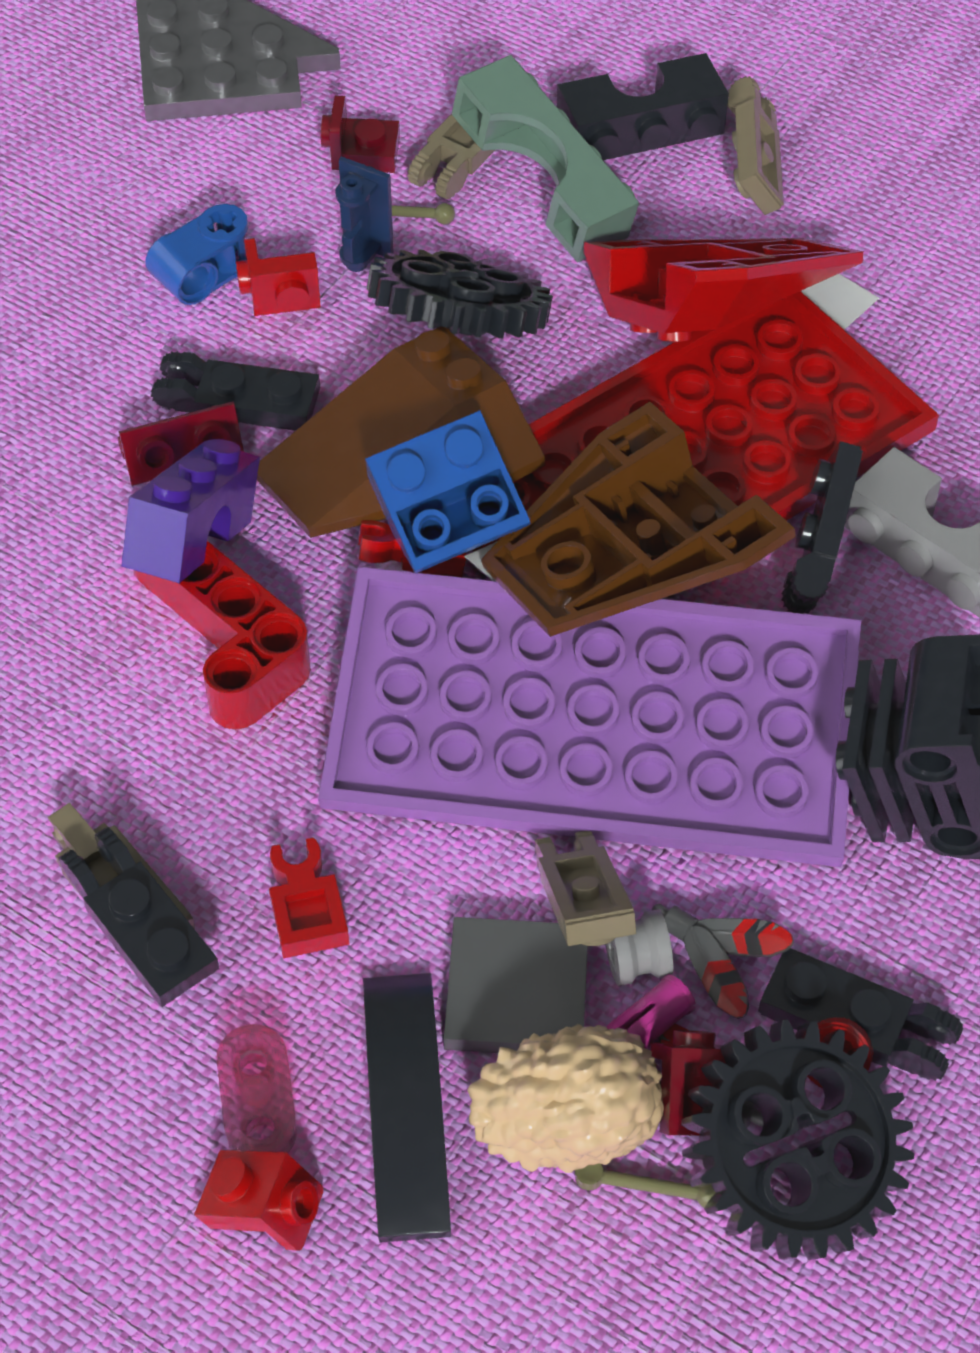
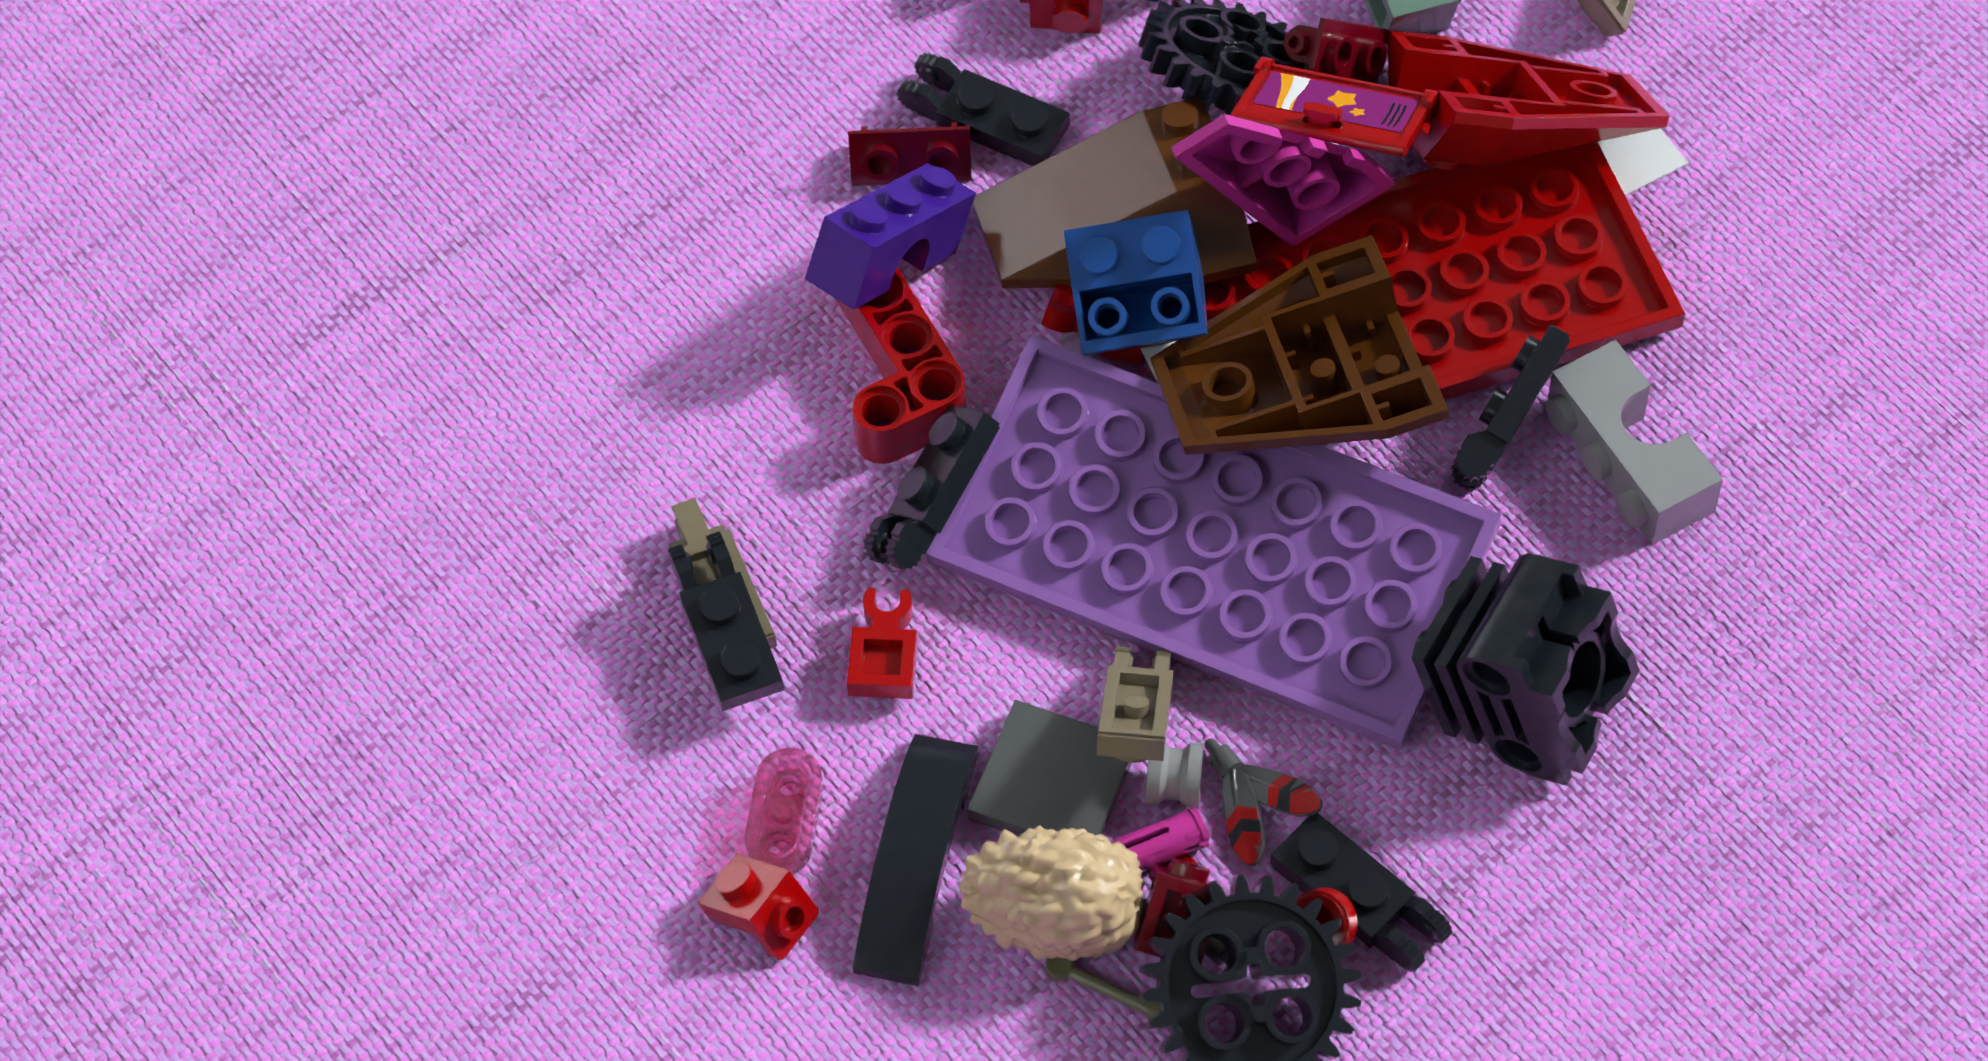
camera: 20 degrees right, 5 degrees up
(305, 734) = (931, 488): none -> black hinge
(551, 261) = (1339, 48): none -> dark red hinge
(555, 360) = (1282, 176): none -> dark pink wedge
(577, 299) = (1336, 108): none -> red door

